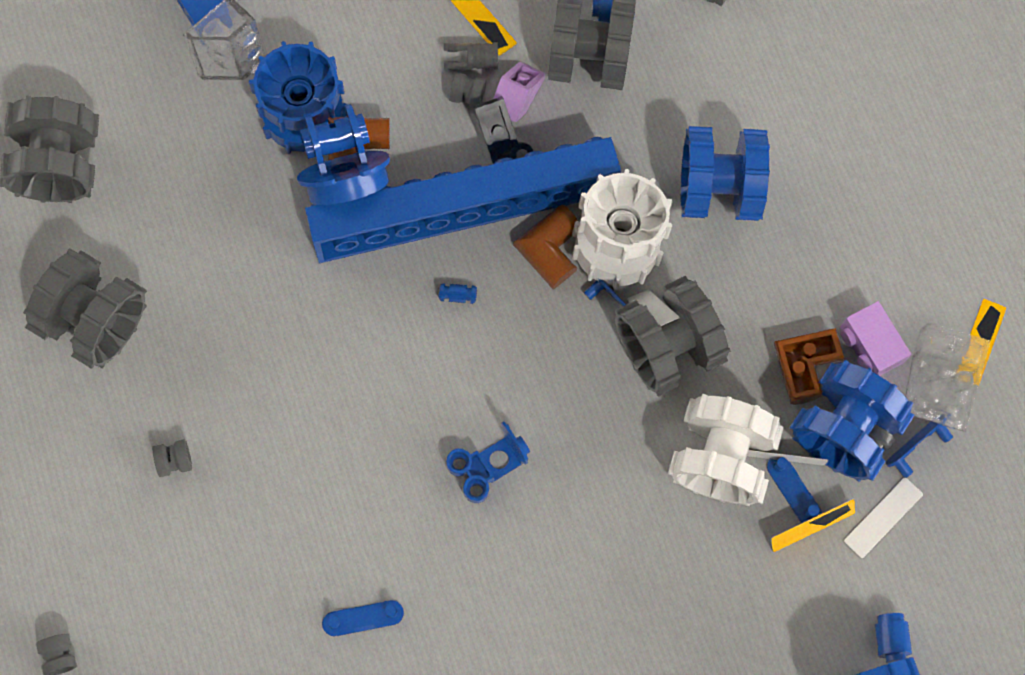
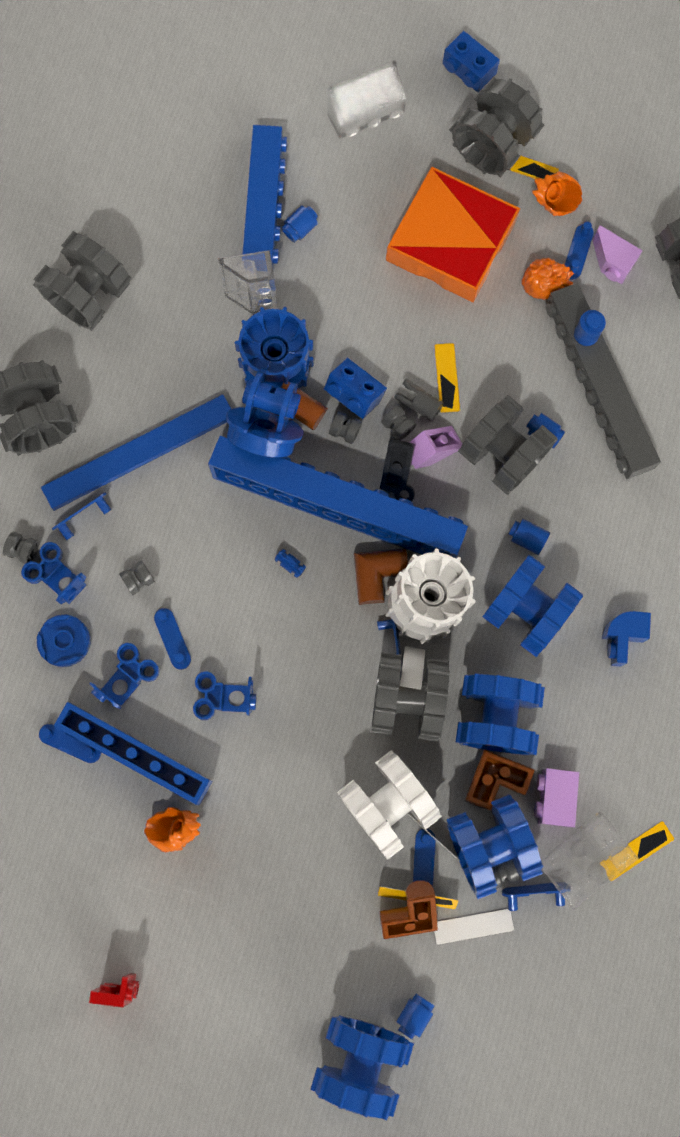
camera: 35 degrees right, 5 degrees up
(203, 410) = (64, 529): none -> blue piece
(221, 460) = (51, 573): none -> blue piece
(223, 288) = (136, 453): none -> blue tile
(283, 521) = (63, 640): none -> blue tile
(314, 407) = (131, 579): none -> dark grey wheel
(374, 505) = (129, 671): none -> blue piece
(392, 445) = (172, 638): none -> blue piece
(401, 83) = (352, 388): none -> blue brick
(418, 127) = (345, 427): none -> dark grey wheel
(438, 578) = (133, 753): none -> blue brick
(530, 624) = (172, 829): none -> orange hair
(670, 115) = (529, 536): none -> blue brick
(759, 279) = (501, 701): none -> blue piece
(822, 143) = (626, 627): none -> blue brick
(827, 541) = (416, 917): none -> dark orange brick

